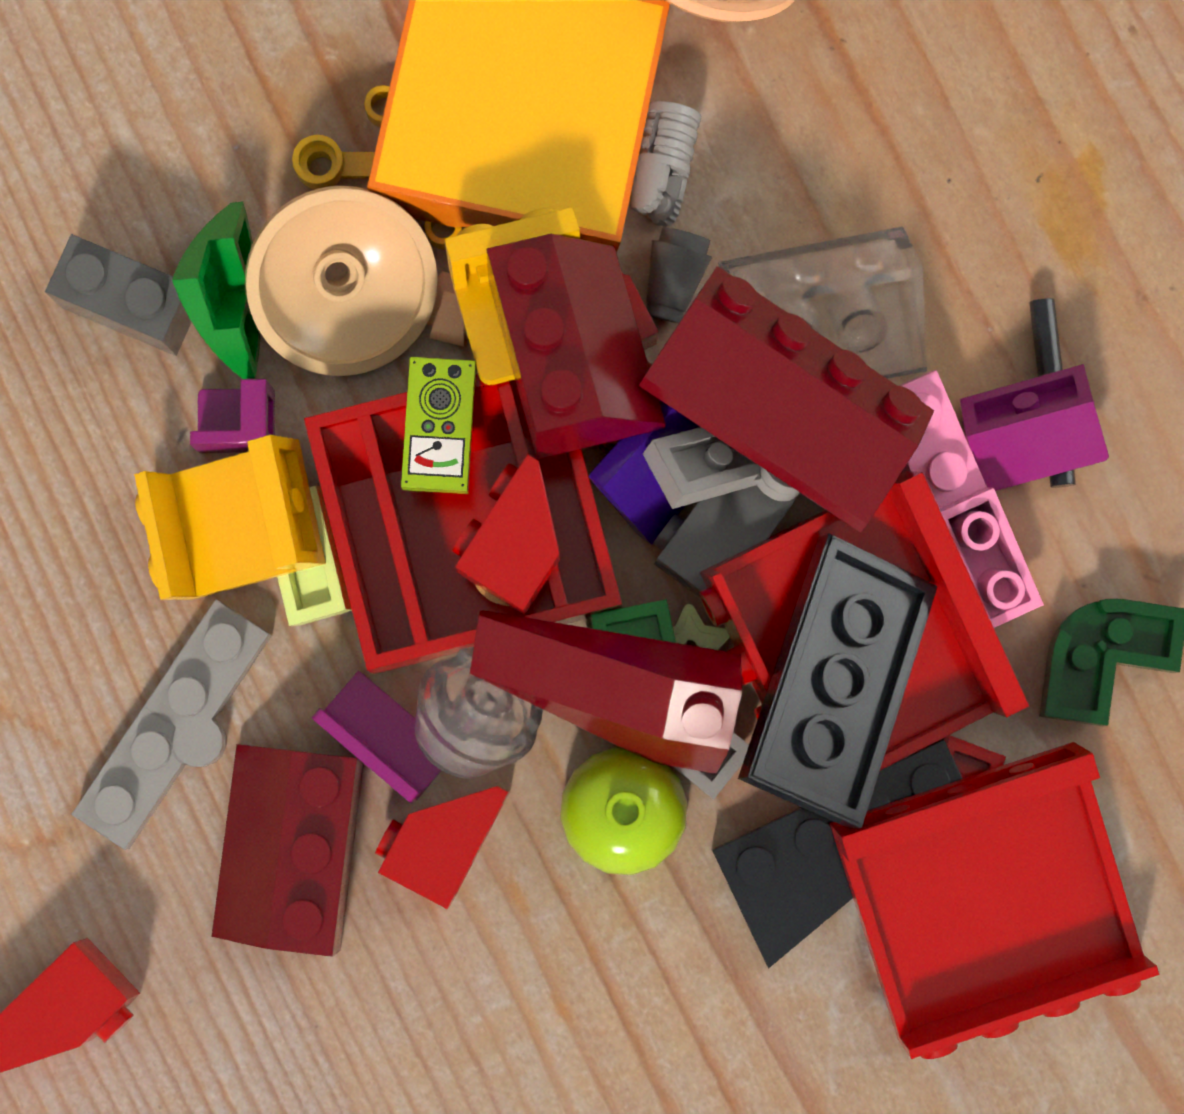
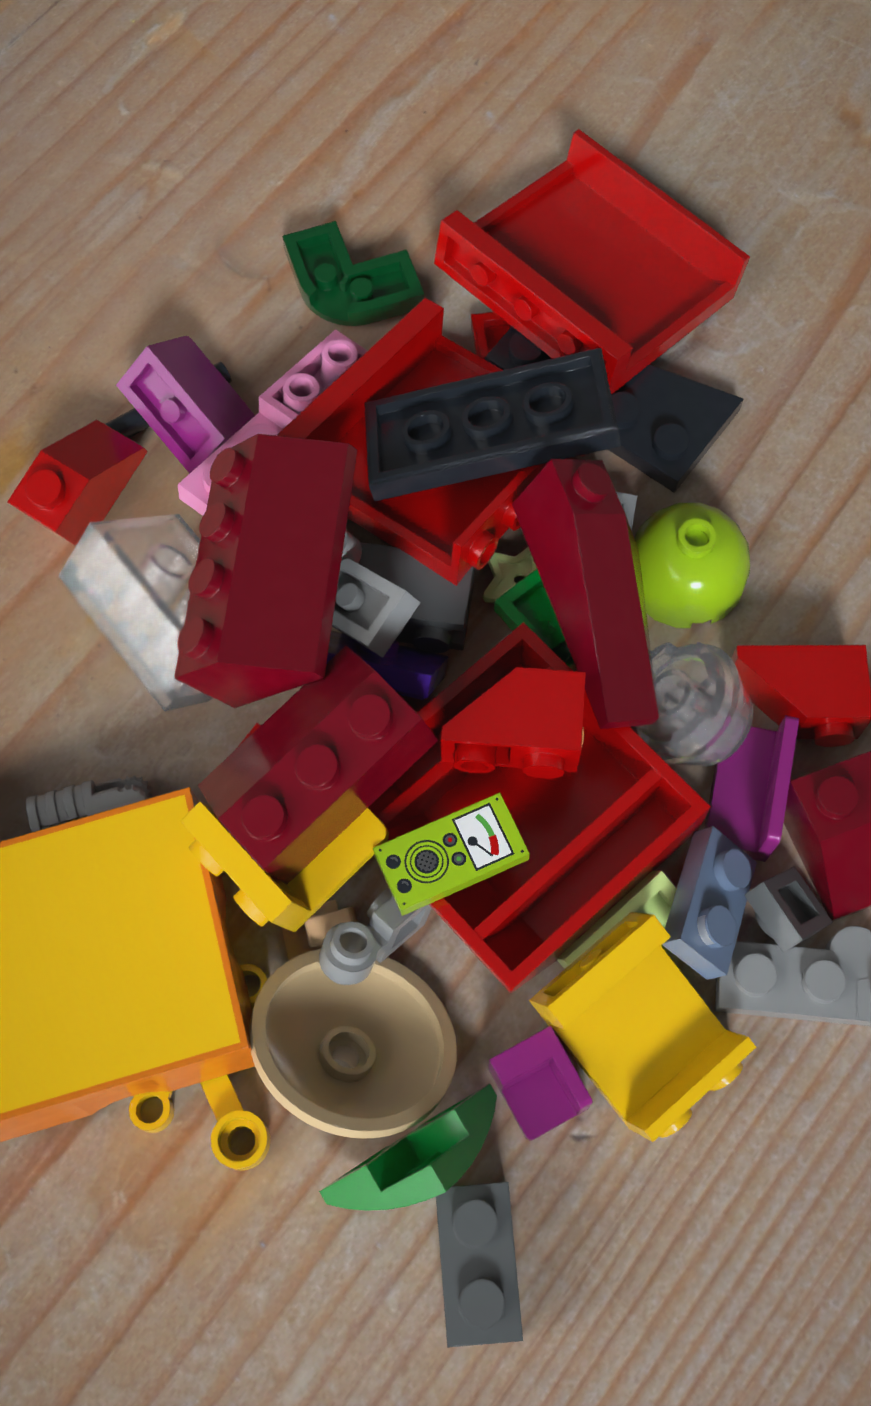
camera: 110 degrees left, 15 degrees down
(261, 704) = (787, 909): none -> dark grey plate
(299, 637) = (709, 903): none -> sand blue piece
(414, 331) = (353, 948): none -> light grey plate
(675, 272) = (189, 749): dark grey cone -> none
(995, 285) = (77, 479): none -> red slope

